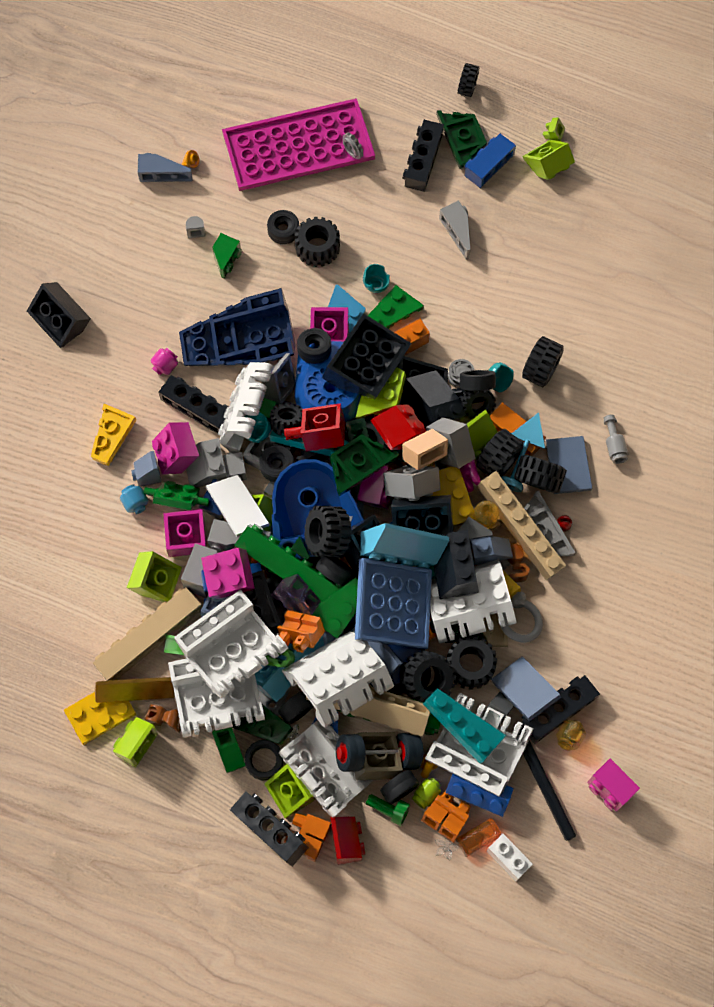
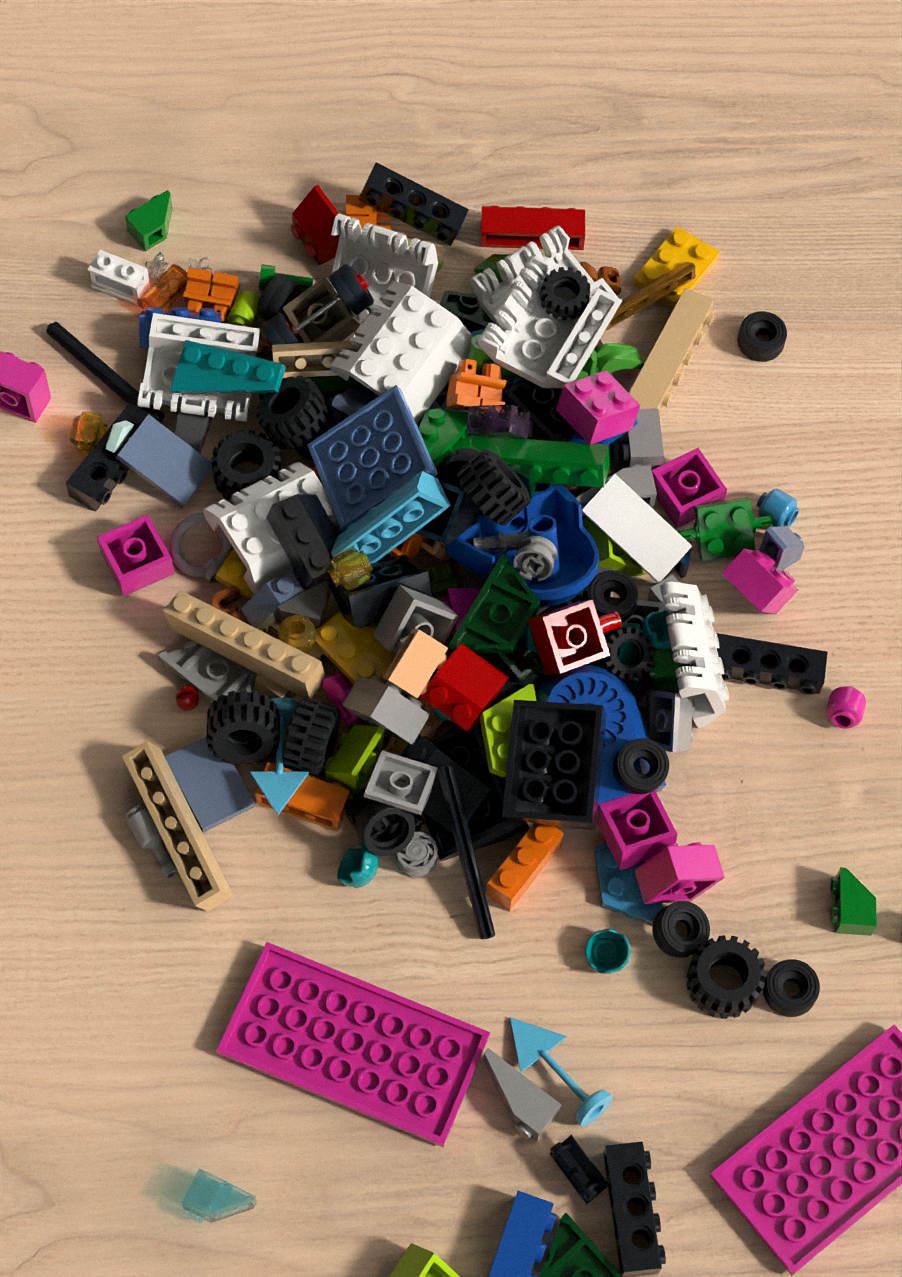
camera: 155 degrees right, 5 degrees down
(72, 619) = (762, 322): none -> black tyre
(112, 432) = (857, 585): yellow wing -> none
(135, 741) = (617, 239): lime slope -> none
(154, 576) = (698, 424): lime slope -> none
(187, 782) = (520, 225): none -> red brick
(205, 651) = (561, 307): none -> black tyre
(208, 464) = (720, 592): light grey slope -> none
(242, 334) = (755, 781): dark blue wedge -> none
(261, 744) = (453, 264): black tyre -> none
(317, 292) = (679, 873): none -> dark pink brick
(320, 483) = (535, 558): none -> light grey wheel
(325, 267) = (665, 933): none -> black tyre
(352, 146) = (751, 1155): light grey gear -> none
(395, 307) = (562, 919): green wing -> none
(434, 355) = (466, 852): none -> black axle
(438, 253) = (536, 1042): none -> medium azure piece
(441, 523) = (350, 569): none -> clear yellow head
(443, 184) = (578, 1169): none -> black hinge
(460, 393) = (401, 782): none -> light grey slope
(468, 900) = (151, 221): none -> green slope
(478, 860) = (156, 266): none -> clear plant
(538, 287) = (354, 1044): none -> dark pink plate
(542, 361) = (300, 901): black tyre -> none
(557, 707) = (118, 435): none -> light aqua tile
(568, 624) = (135, 555): none -> dark pink brick
(599, 437) = (177, 826): none -> tan brick
(641, 237) = (215, 1199): none -> clear light blue slope

